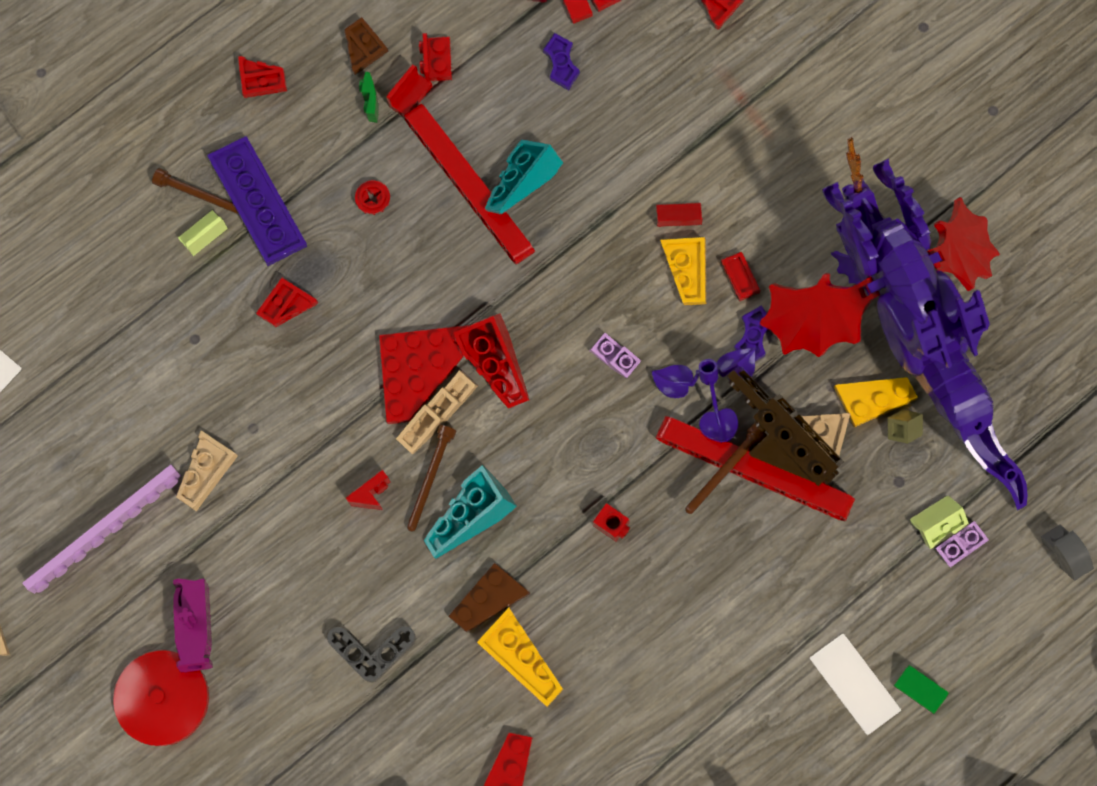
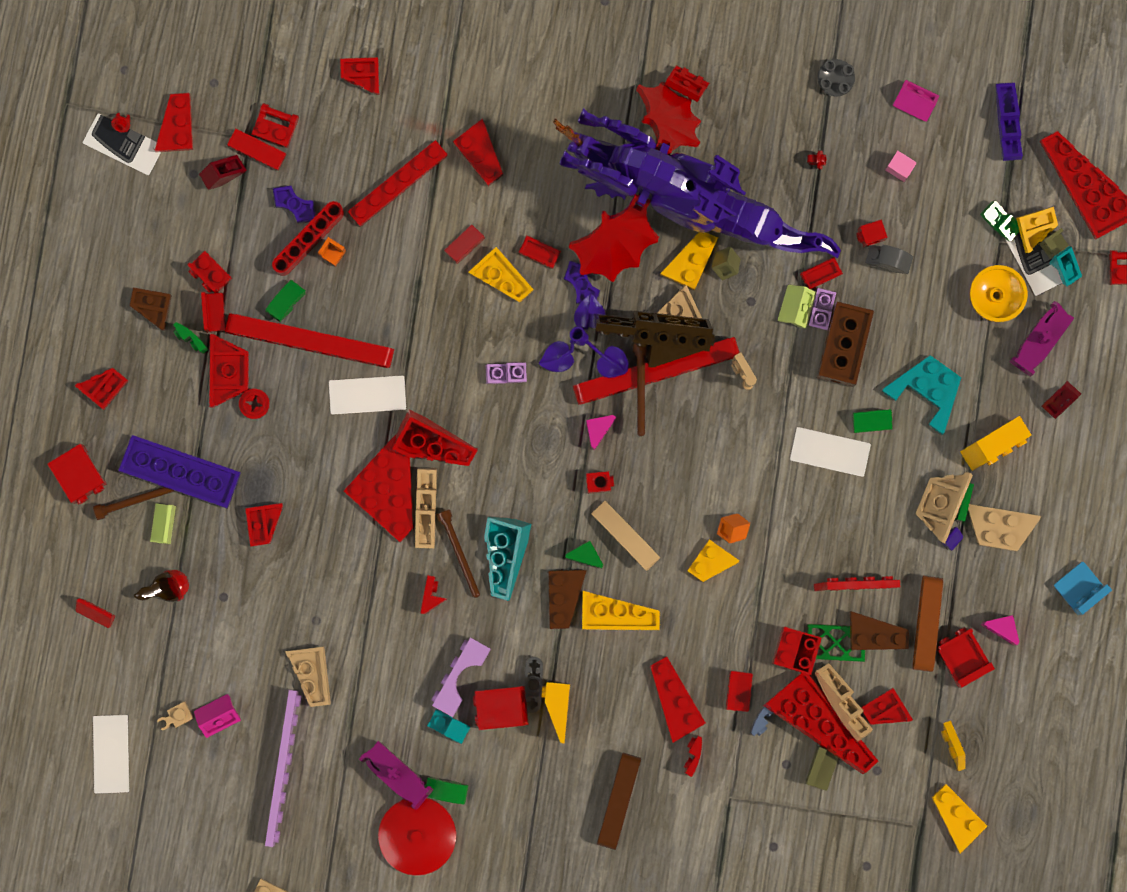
camera: 50 degrees left, 10 degrees up
(61, 406) = (177, 715): none -> tan plate
(77, 257) = (94, 612): none -> red slope
(91, 435) = (216, 716): none -> dark pink panel
(155, 285) = (167, 586): none -> piece
(170, 130) = (77, 474): none -> red panel
(224, 681) = (447, 790): none -> green slope
(279, 624) = (449, 726): none -> teal slope
(301, 597) = (448, 698): none -> lavender arch
(339, 648) = (501, 708): none -> red panel
(375, 150) = (227, 371): none -> red wing
(391, 689) = (556, 701): none -> yellow slope
(474, 132) = (285, 300): none -> green slope
(476, 272) = (367, 395): none -> white sticker
(528, 169) = (342, 301): teal wedge -> none
(541, 577) = (585, 554): none -> green slope
(556, 102) = (310, 229): none -> red beam
(556, 124) = (331, 251): none -> orange panel
(592, 592) = (625, 535): none -> tan slope
(651, 687) = (711, 562): none -> yellow wing
(654, 474) = (598, 428): none -> dark pink slope
(666, 115) = (397, 183): none -> red plate
(699, 673) = (733, 528): none -> orange panel
(763, 146) = (479, 152): none -> red wing
(836, 530) = (741, 367): none -> tan plate
(956, 577) = (857, 340): none -> reddish brown brick
(989, 511) = (821, 273): none -> red tile
(1007, 237) = (687, 83): none -> red plate
(1012, 704) = (932, 382): none -> teal wing
(1070, 514) = (871, 233): none -> red brick
(1074, 405) = (819, 159): none -> red plate

